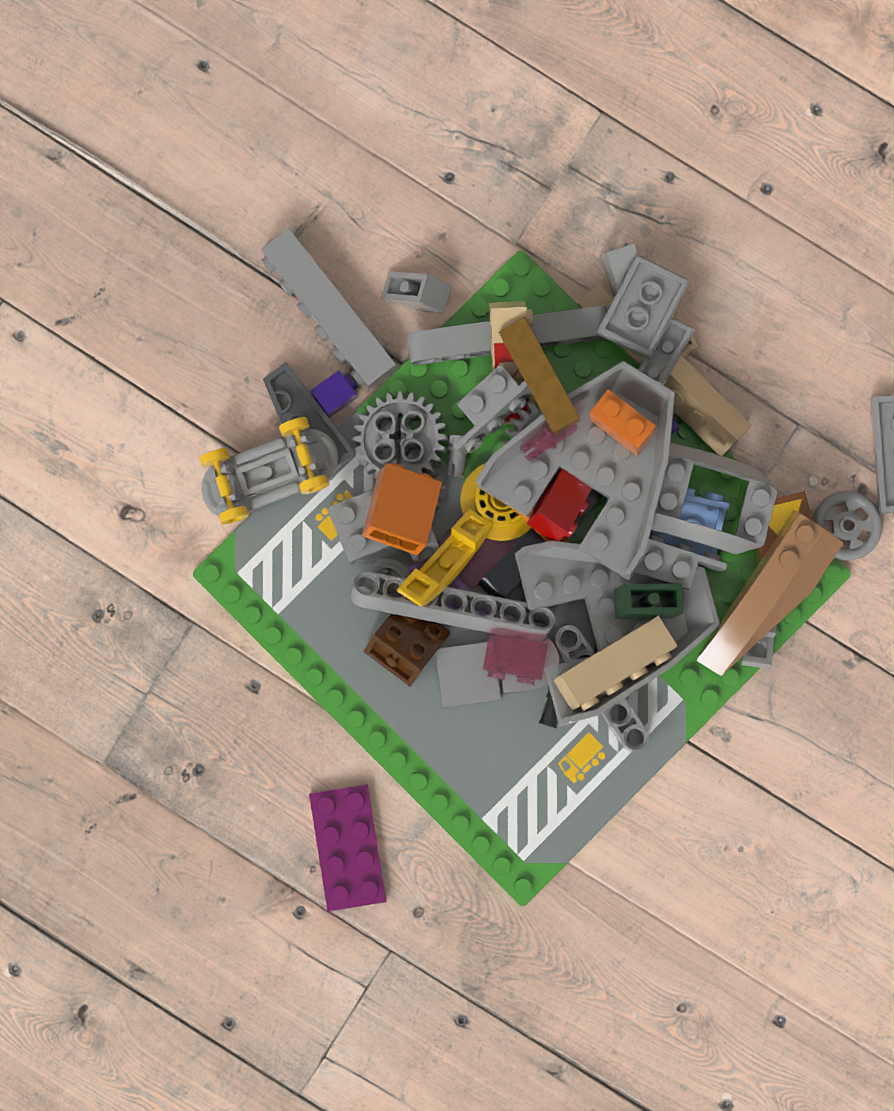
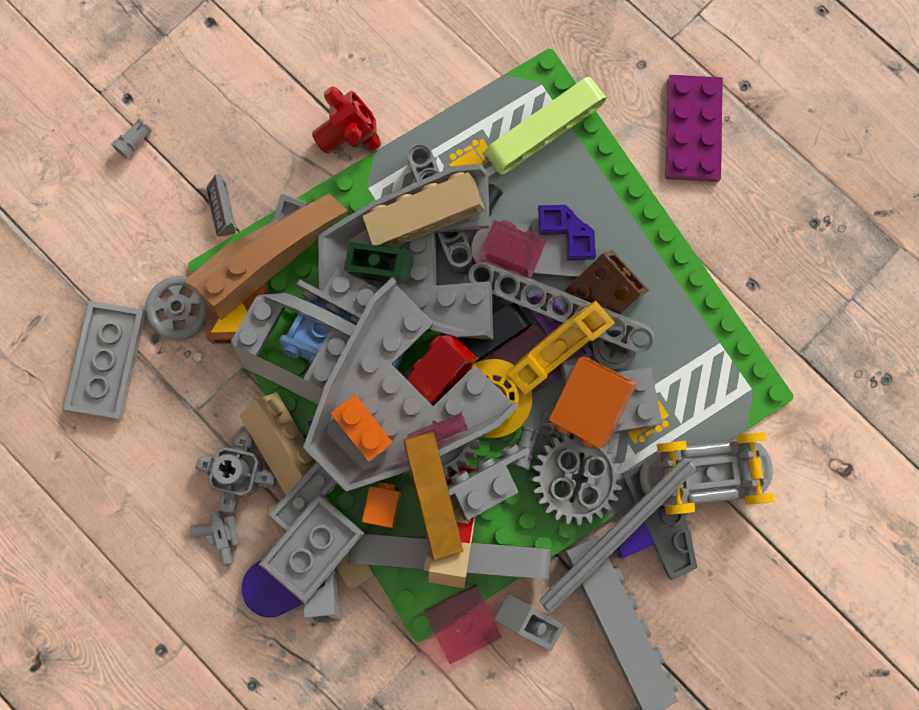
camera: 165 degrees left, 5 degrees down
(350, 388) = (618, 534): none -> light grey axle
(468, 703) = (562, 220): none -> dark purple tile
(481, 276) = (462, 624): none -> clear pink tile
(509, 806) = (545, 125): none -> yellowish green beam
(584, 362) = (382, 505): none -> orange brick
(683, 260) = (265, 594): none -> dark purple tile
(719, 760) = (348, 121): none -> red piece
(732, 379) = (247, 473): none -> light grey piece
(740, 310) = (219, 533): none -> light grey piece
(833, 643) = (221, 206): none -> light grey slope

